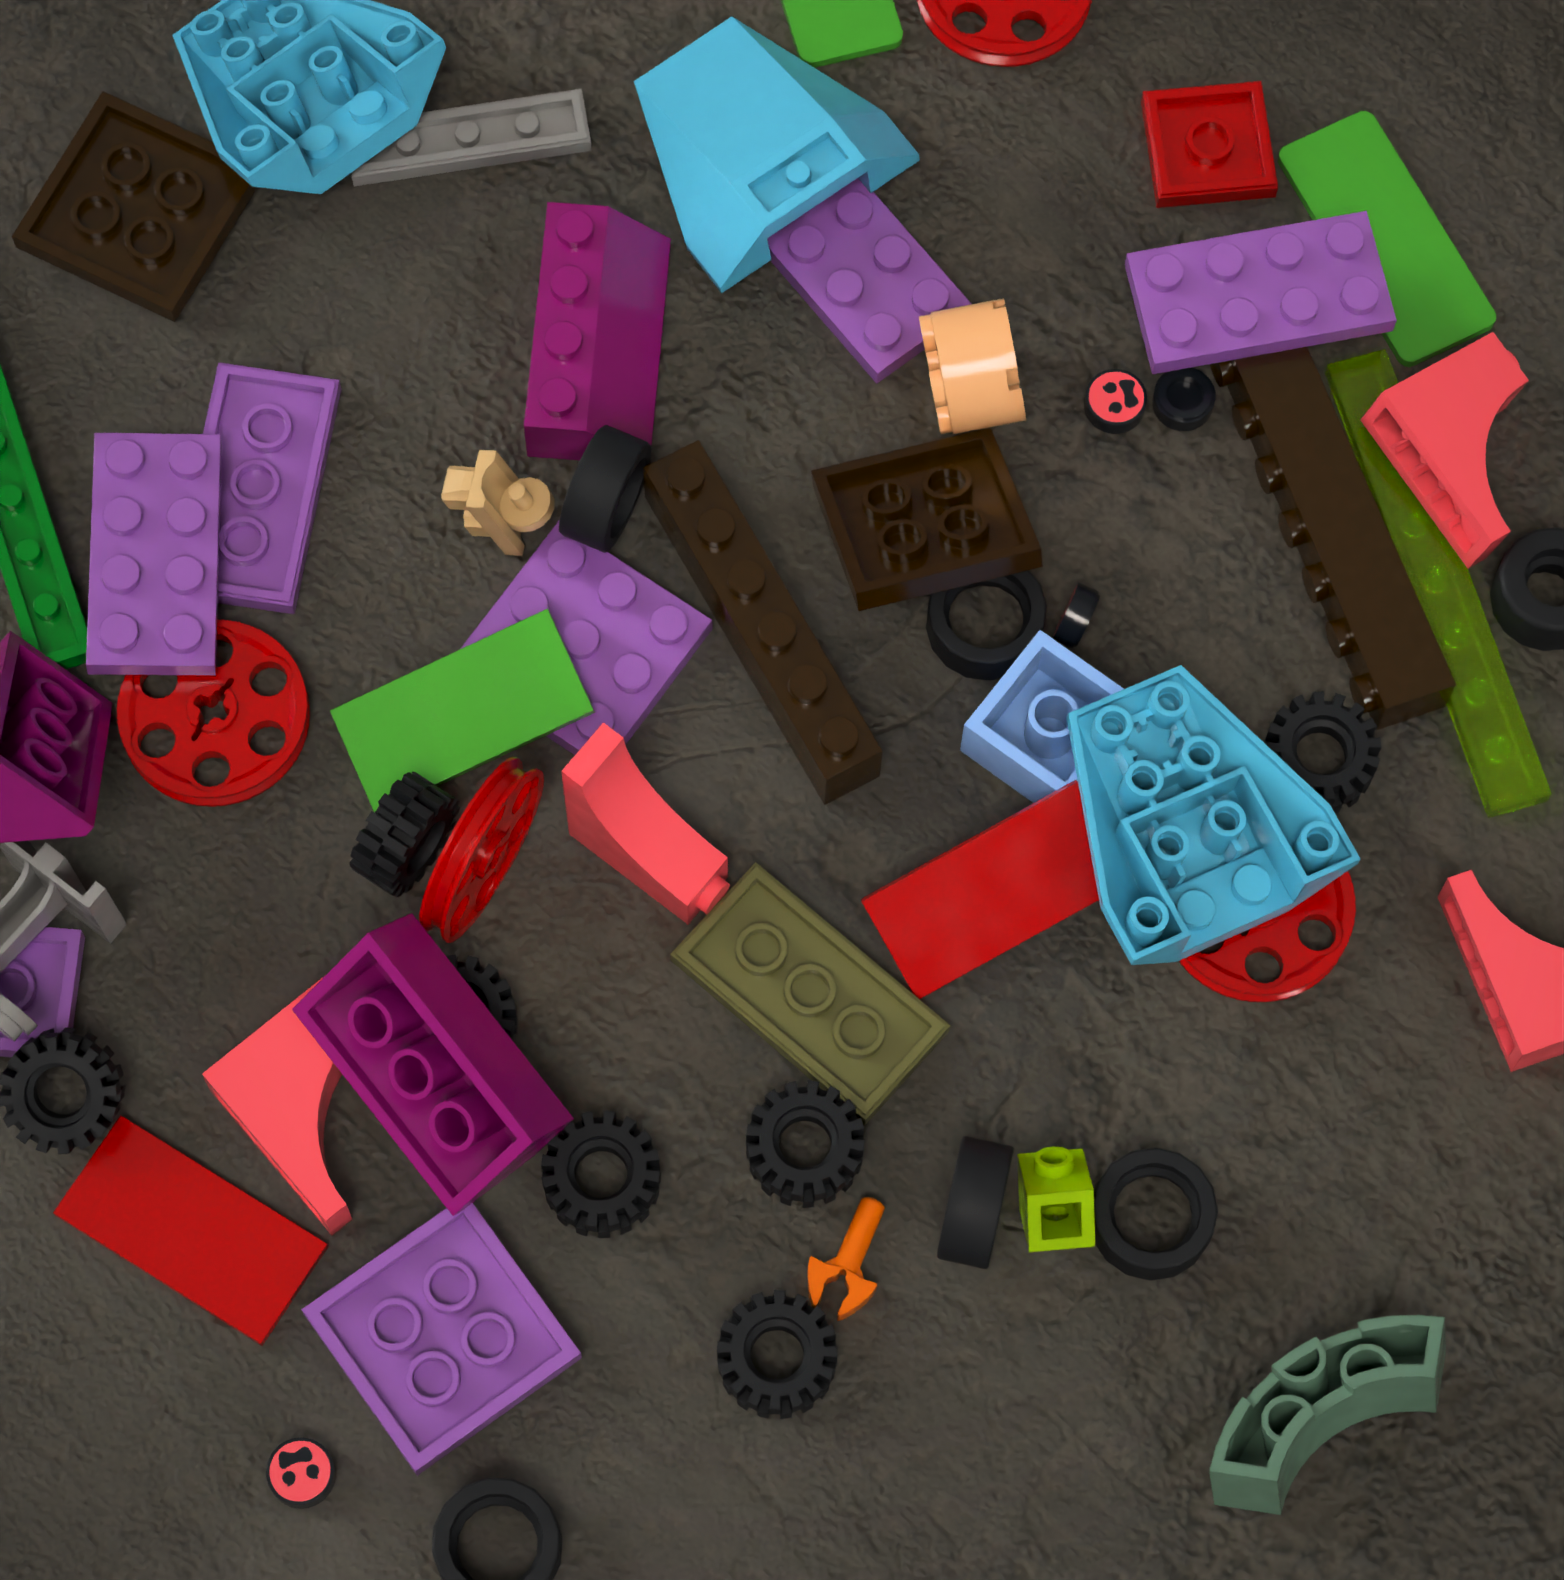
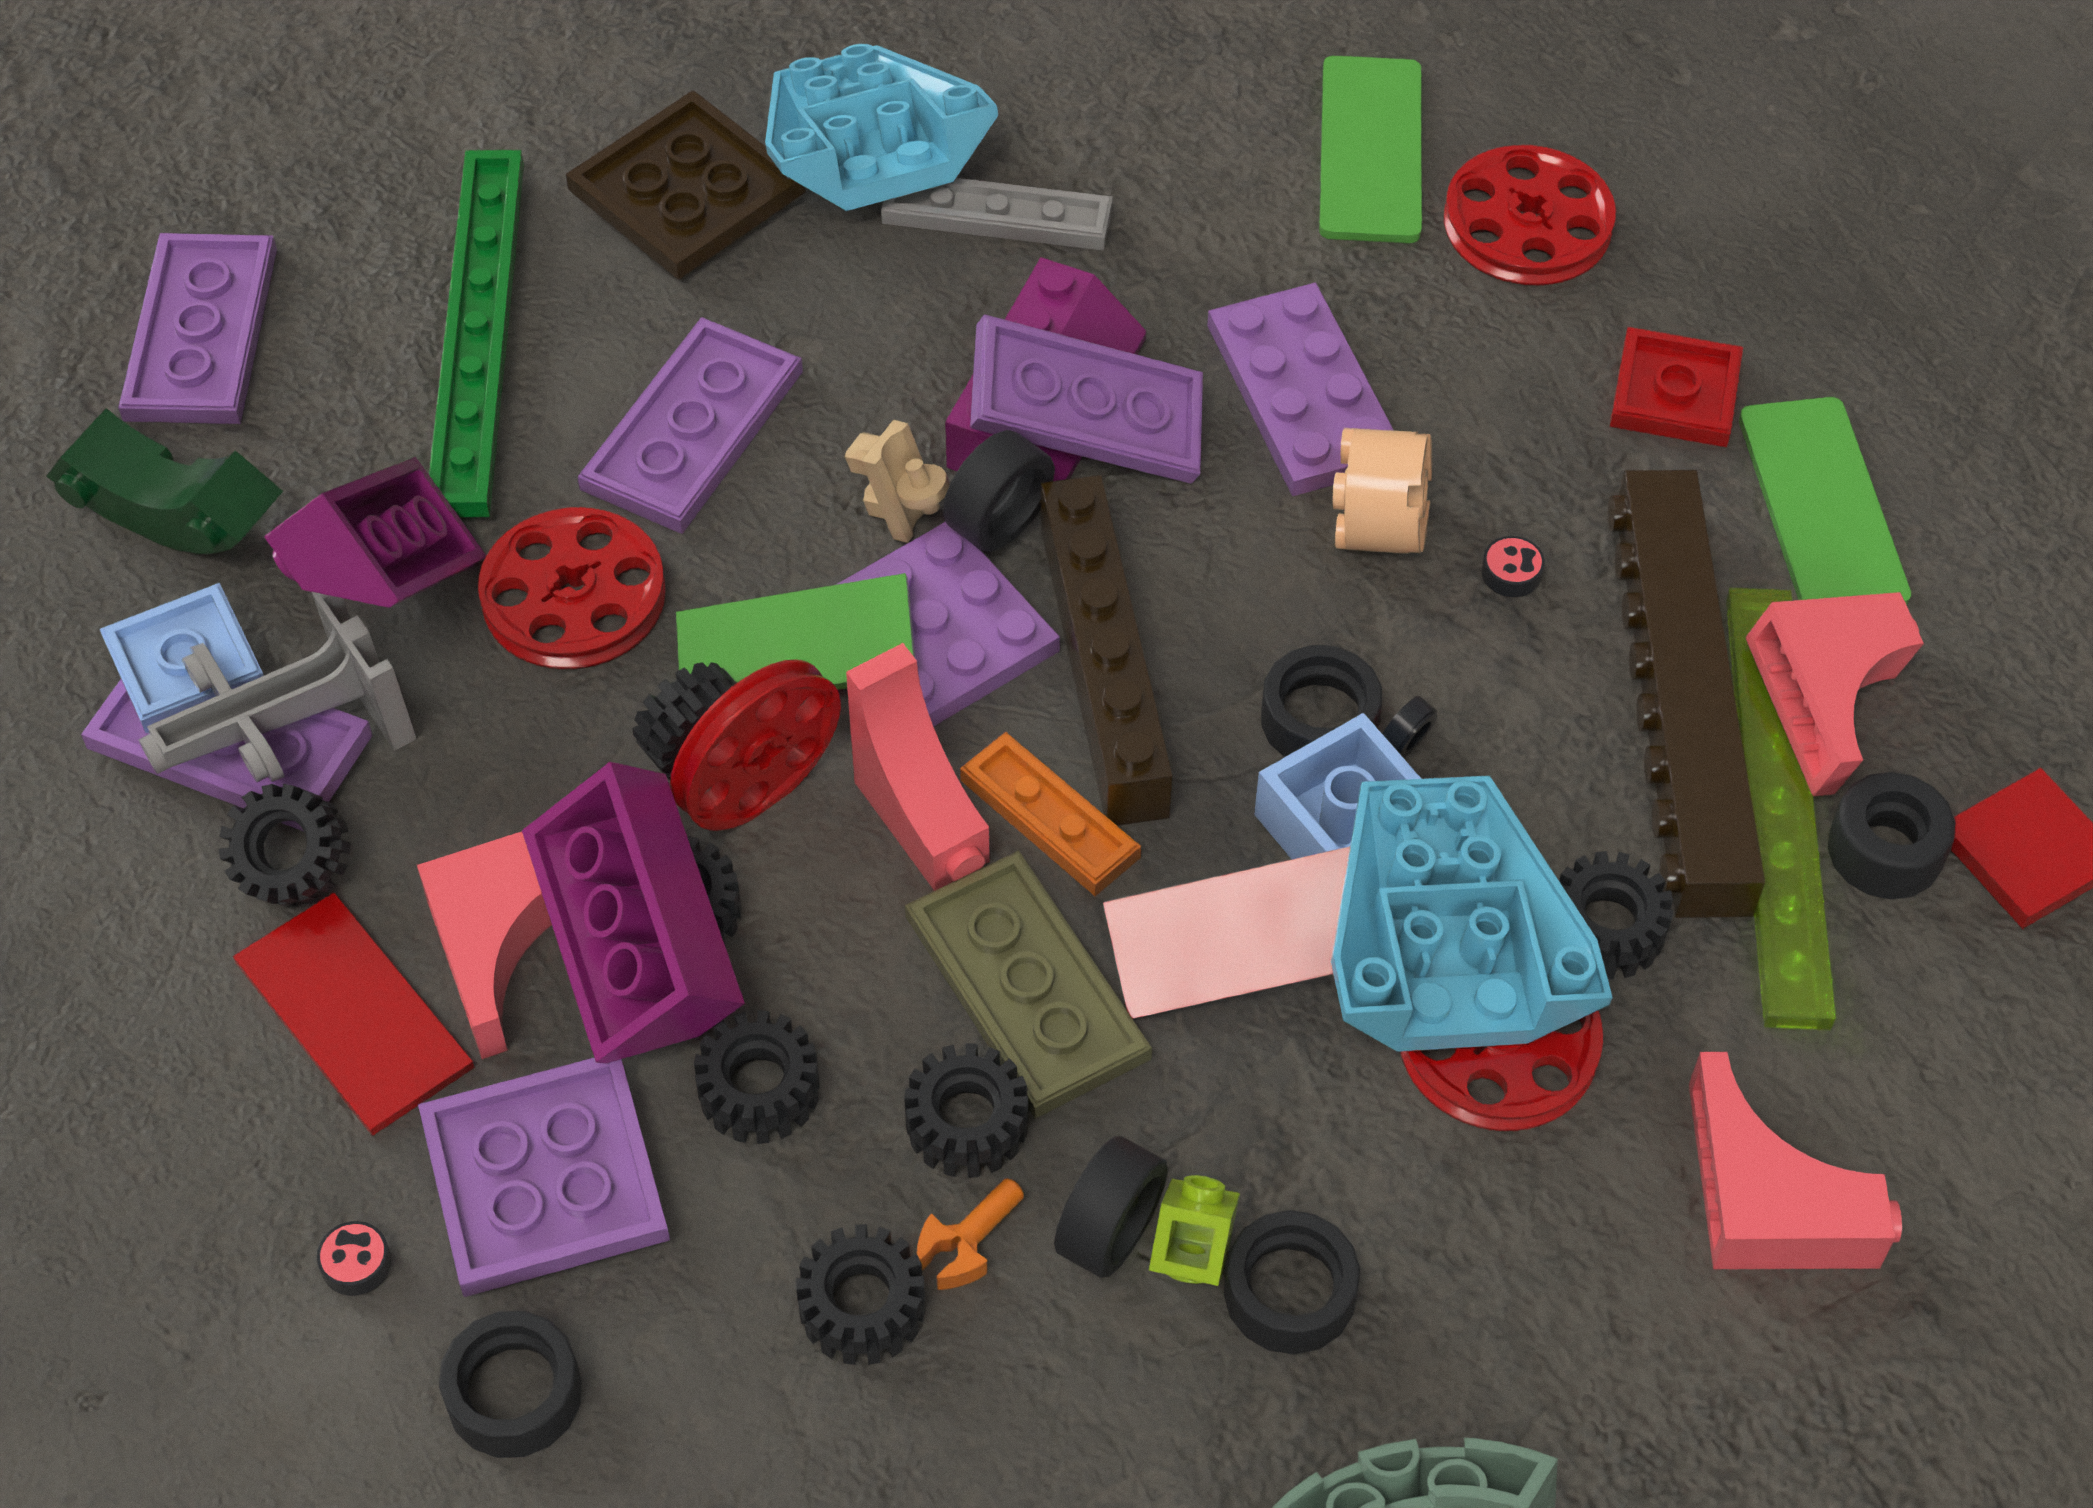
camera: 20 degrees right, 15 degrees down
(154, 554) = (573, 442): medium lavender plate -> none
(651, 354) = (1087, 399): none -> medium lavender tile
(757, 143) = (1252, 261): medium azure wedge -> none
(768, 810) = (1050, 813): none -> orange tile
(926, 519) = (1292, 602): dark brown plate -> none
(1183, 399) = (1580, 582): black tile -> none
(1259, 292) = (1680, 498): medium lavender plate -> none

